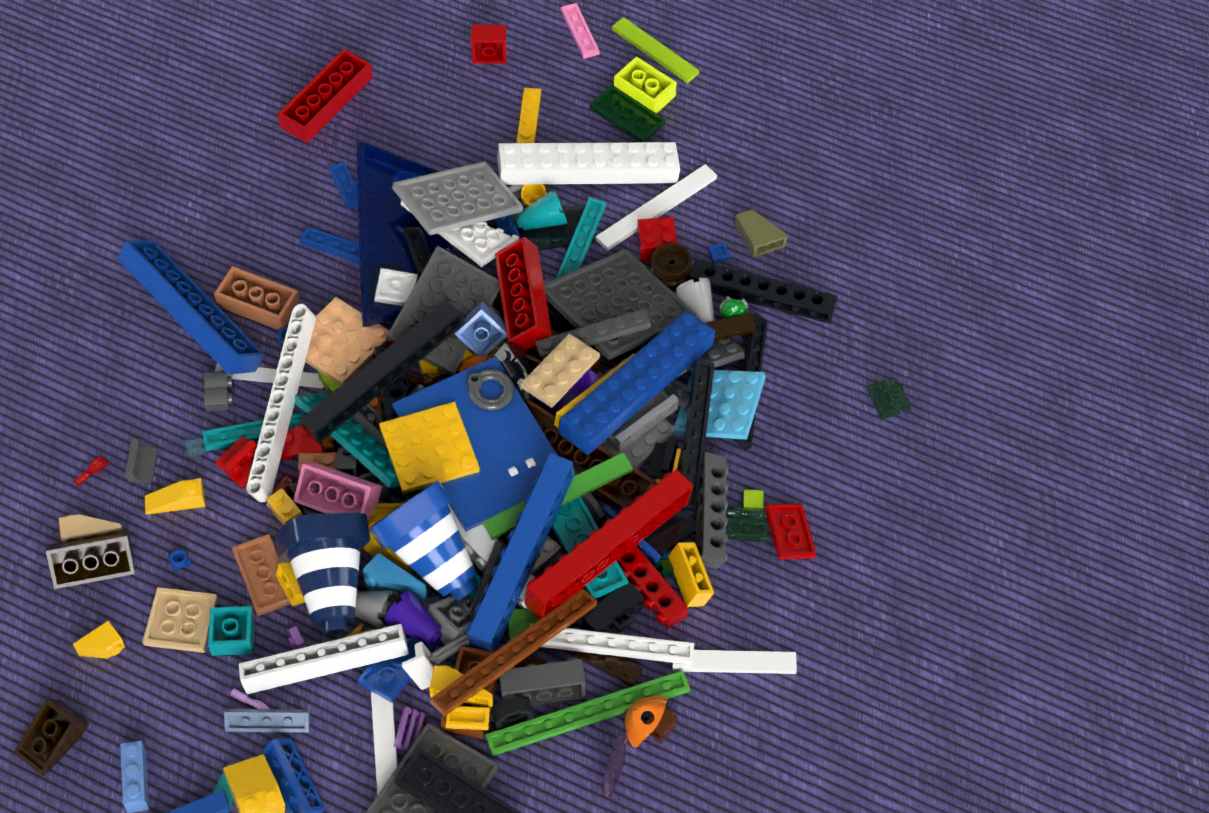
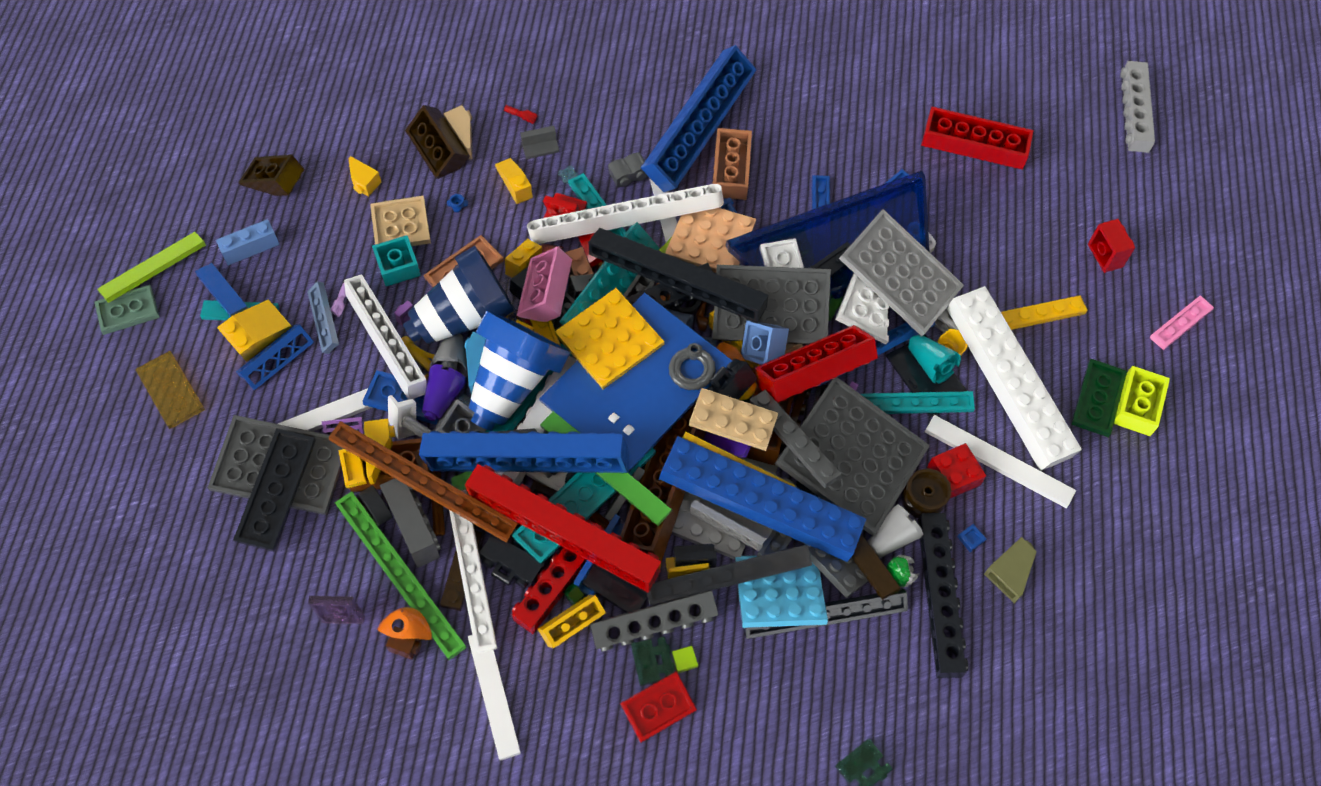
camera: 70 degrees right, 5 degrees up
(655, 50) = (1198, 399): lime tile -> none

